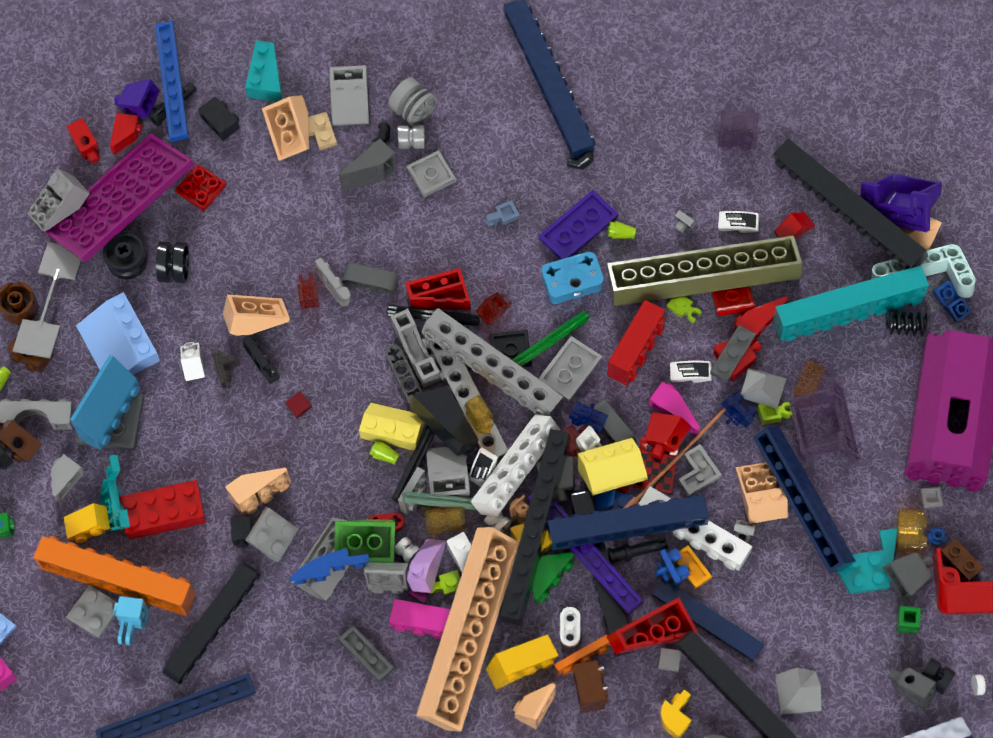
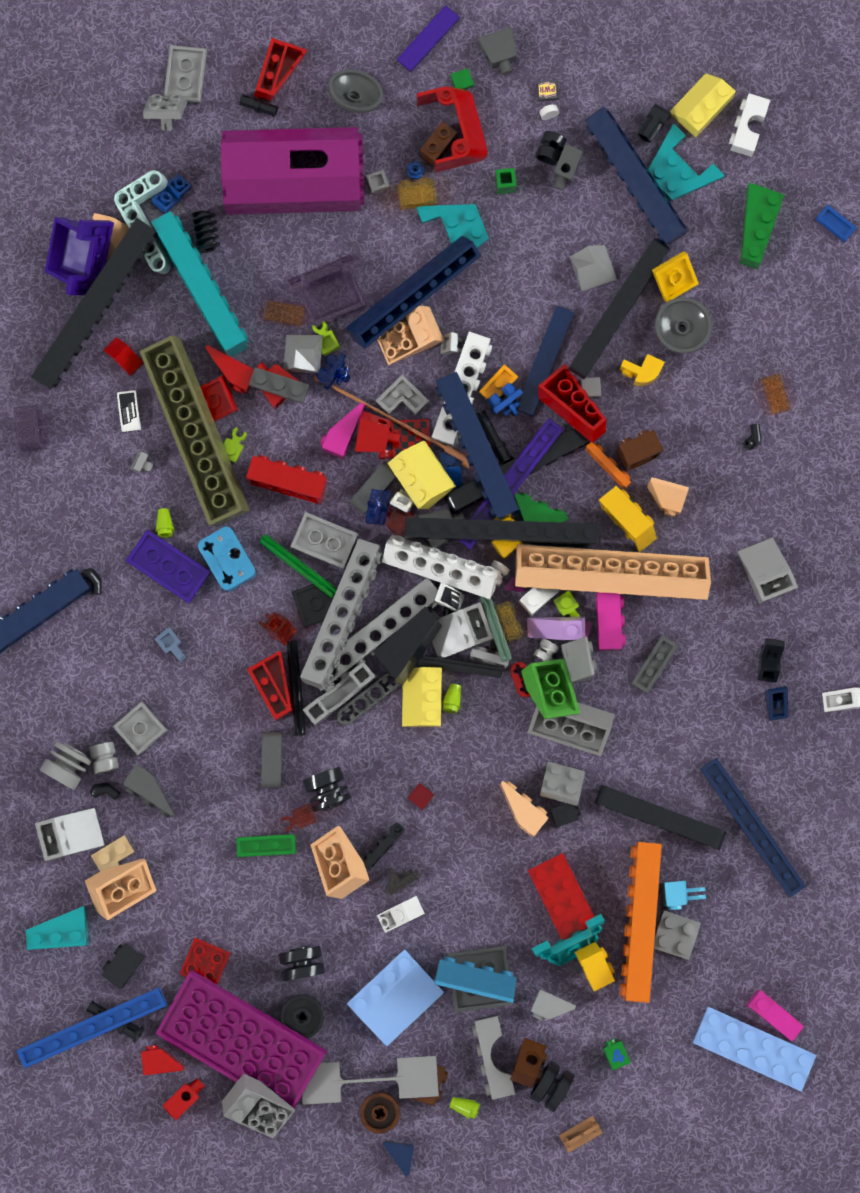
camera: 110 degrees left, 15 degrees up
(138, 98) = (120, 1058): dark purple torso -> none
(291, 258) = (266, 845): none -> green plate
(320, 567) = (593, 722): blue slope -> none
(326, 317) = (327, 789): none -> black wheel
(332, 283) = (285, 795): light grey hinge -> none
(479, 415) = (403, 608): clear yellow brick -> none
(519, 510) = (485, 551): medium nougat hinge -> none
(570, 628) = (582, 482): white plate -> none
(690, 371) = (300, 425): slope -> none
(909, 573) = (460, 187): dark grey torso -> none

